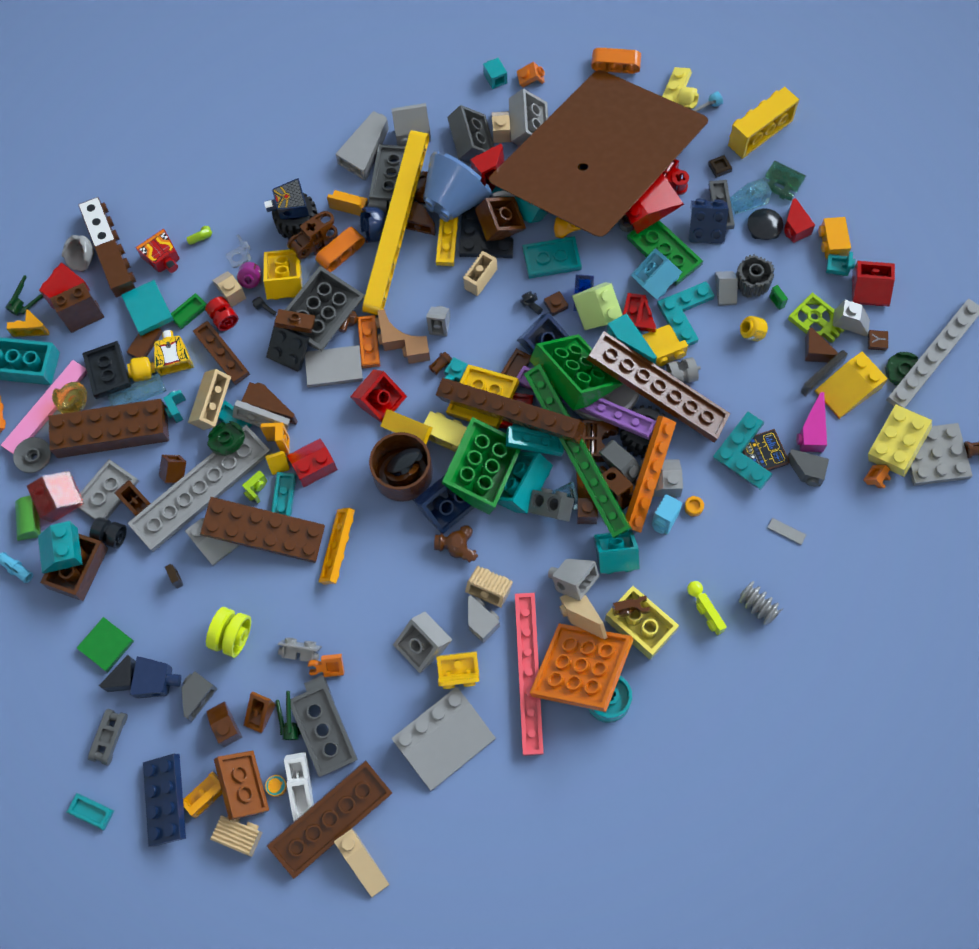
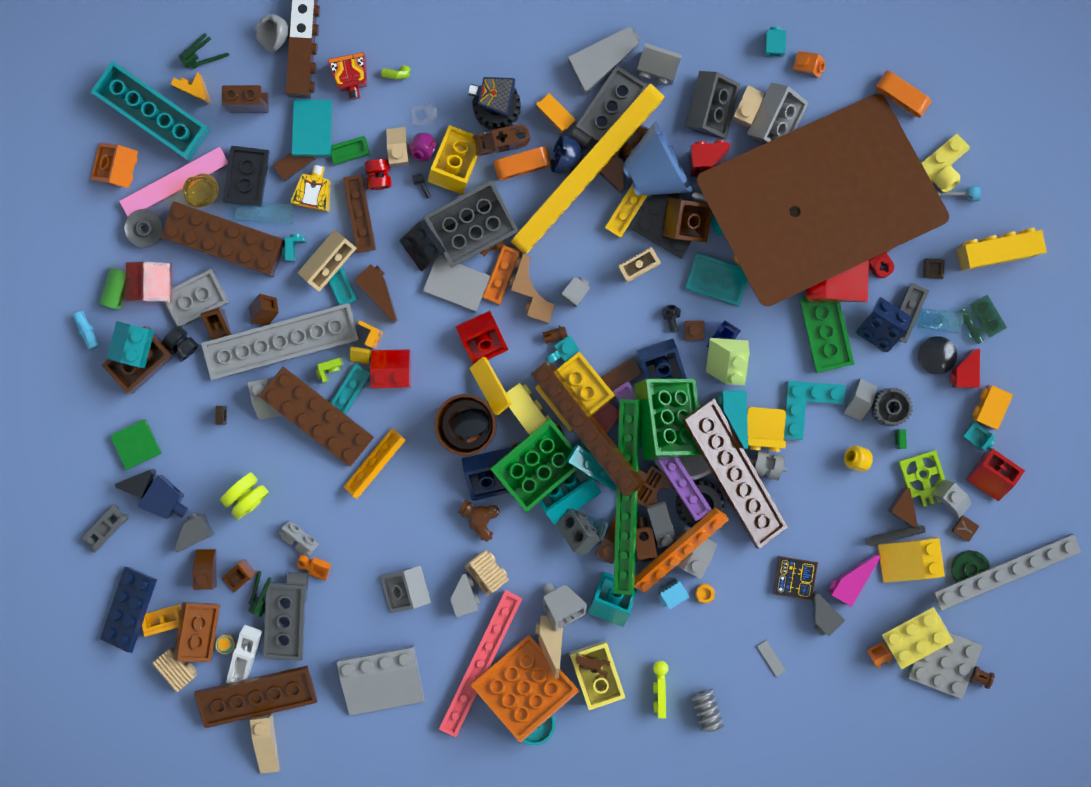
camera: 25 degrees right, 20 degrees up
(60, 281) = (241, 68): red slope -> none
(90, 811) = (64, 583): teal tile -> none
(140, 369) = (278, 192): yellow head -> none
(226, 438) = (324, 308): dark green tile -> none
(257, 416) = (365, 304): light grey plate -> none
(294, 321) = (439, 229): reddish brown plate -> none
(458, 669) = (421, 633): yellow bracket -> none
(639, 312) = (762, 384): red wing -> none
(656, 274) = (801, 355): medium azure slope -> none
(731, 451) = (764, 565): teal plate -> none

